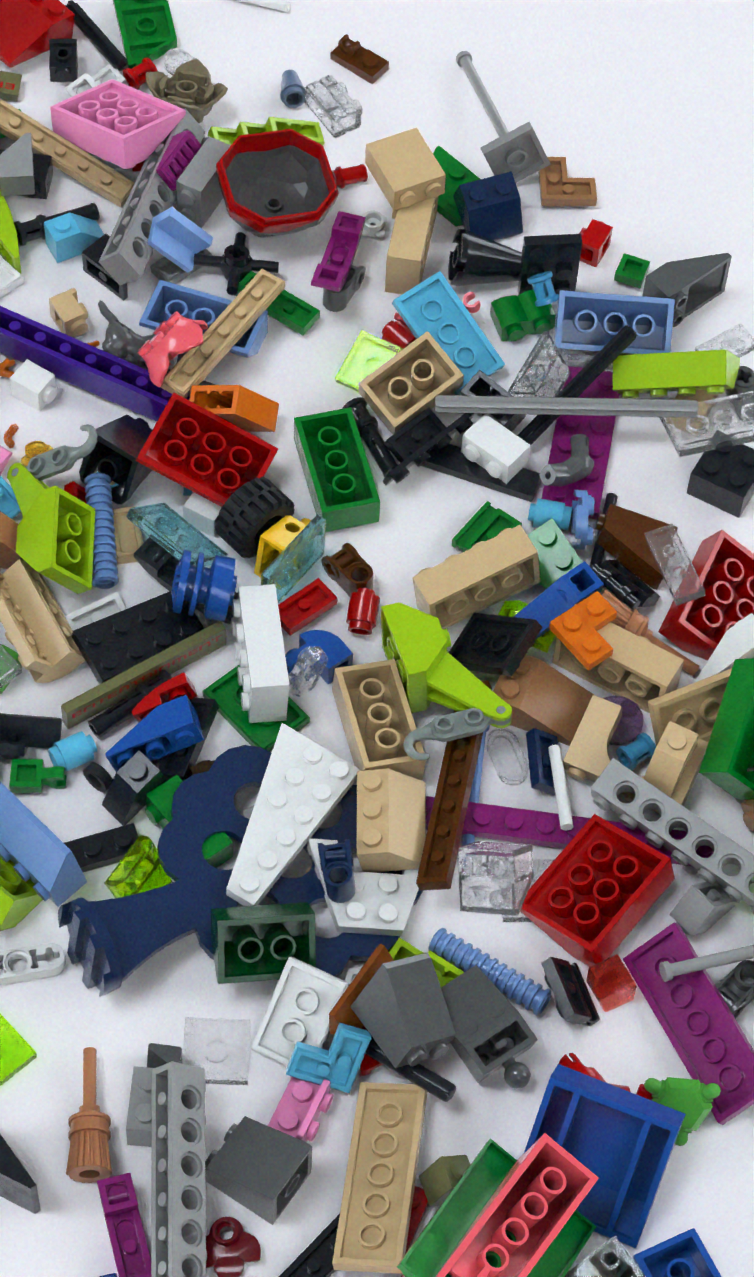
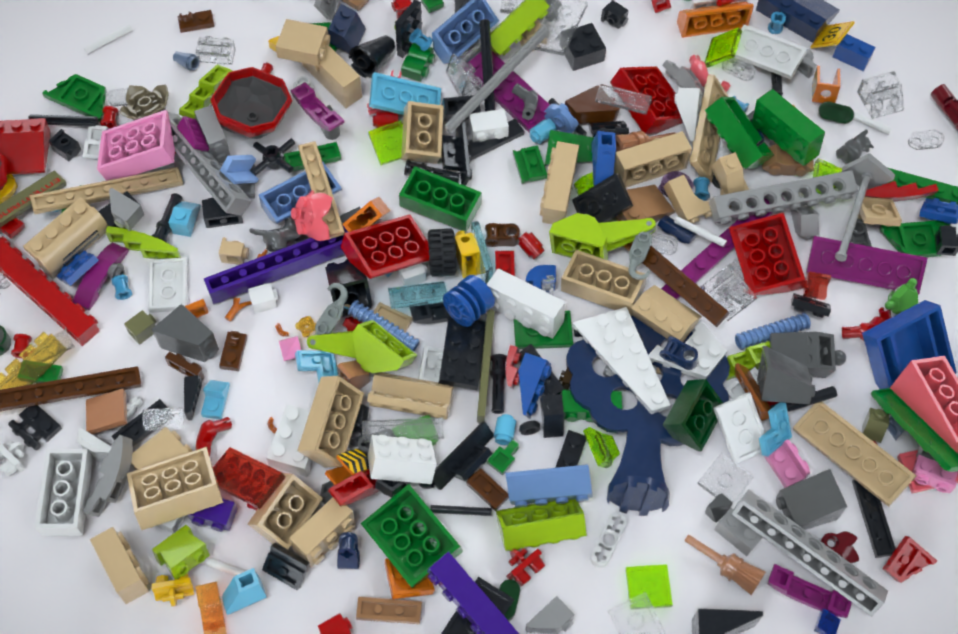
camera: 50 degrees left, 5 degrees up
(579, 628) = (634, 161): orange plate -> none

